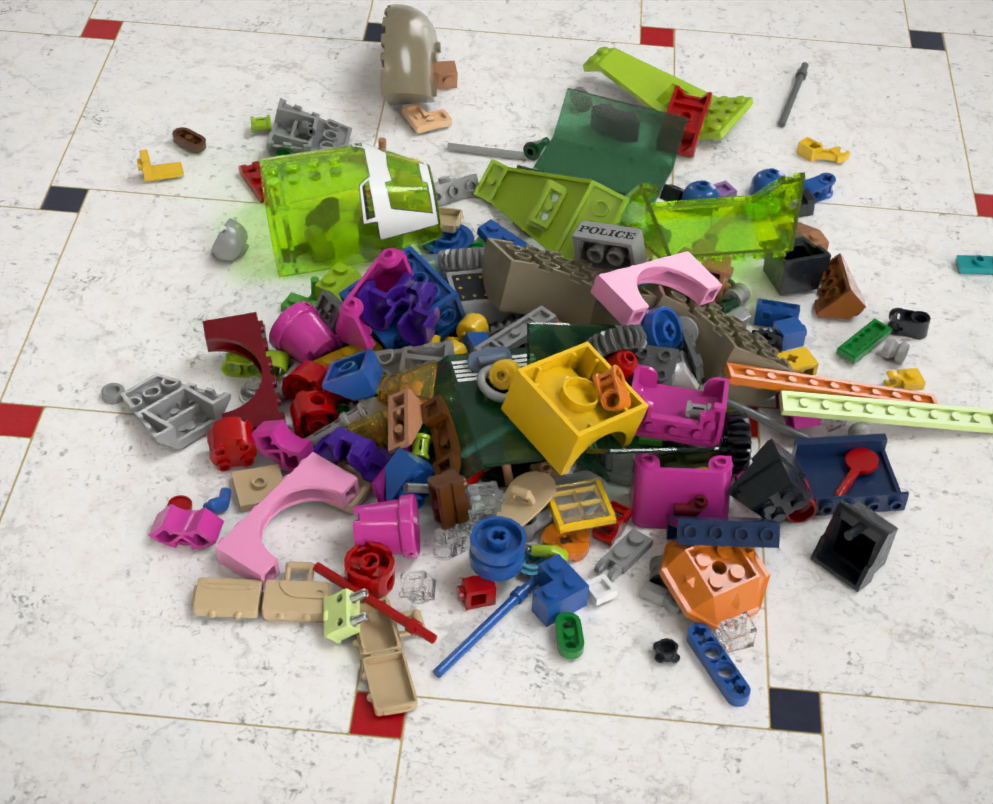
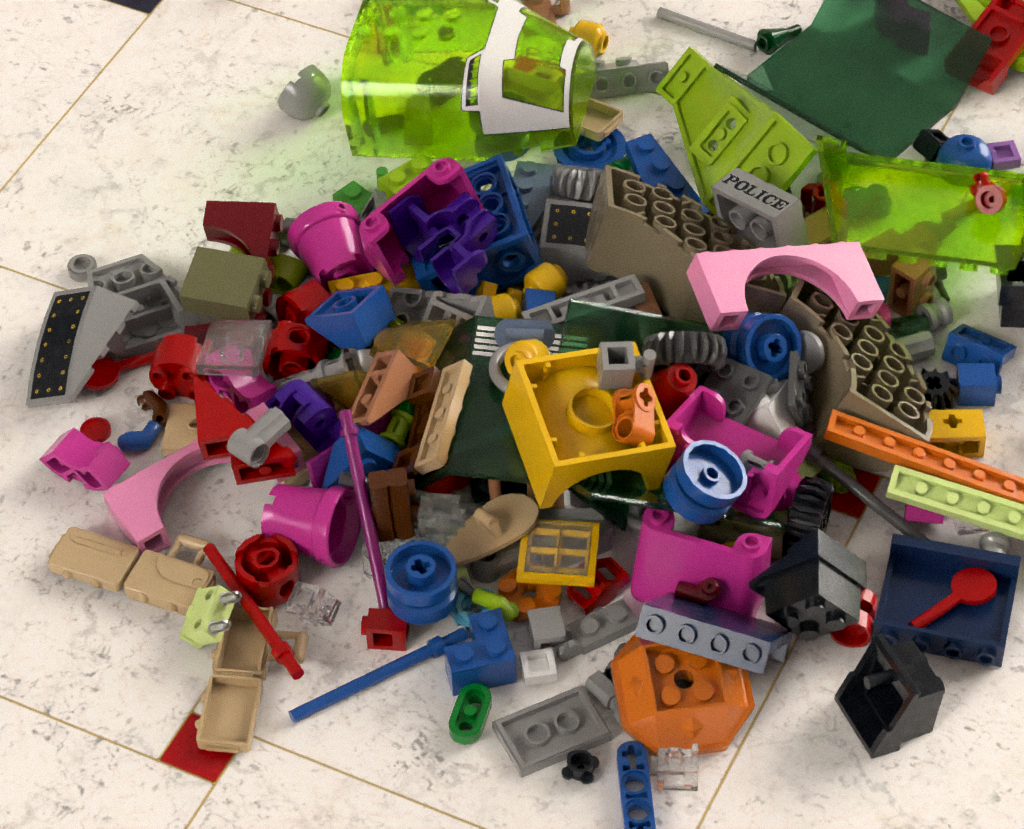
camera: 25 degrees right, 5 degrees up
(138, 442) = (72, 339): none -> wedge
(168, 463) = (108, 371): none -> red piece
(223, 476) = (157, 404): none -> reddish brown arm
(245, 376) = (225, 284): none -> olive brick
(273, 418) = (234, 347): none -> clear tile
(302, 477) = (216, 423): none -> red slope
(332, 477) = (254, 443): none -> light grey piece
(405, 453) = (349, 434): none -> magenta bar
(462, 428) = (443, 417): none -> tan plate
(590, 357) = (618, 365): none -> light grey brick
(592, 560) = (545, 626): none -> light grey panel
(631, 632) = (551, 730): none -> light grey tile
(677, 426) = (705, 482): none -> blue wheel
(743, 212) = (988, 196): none -> arm

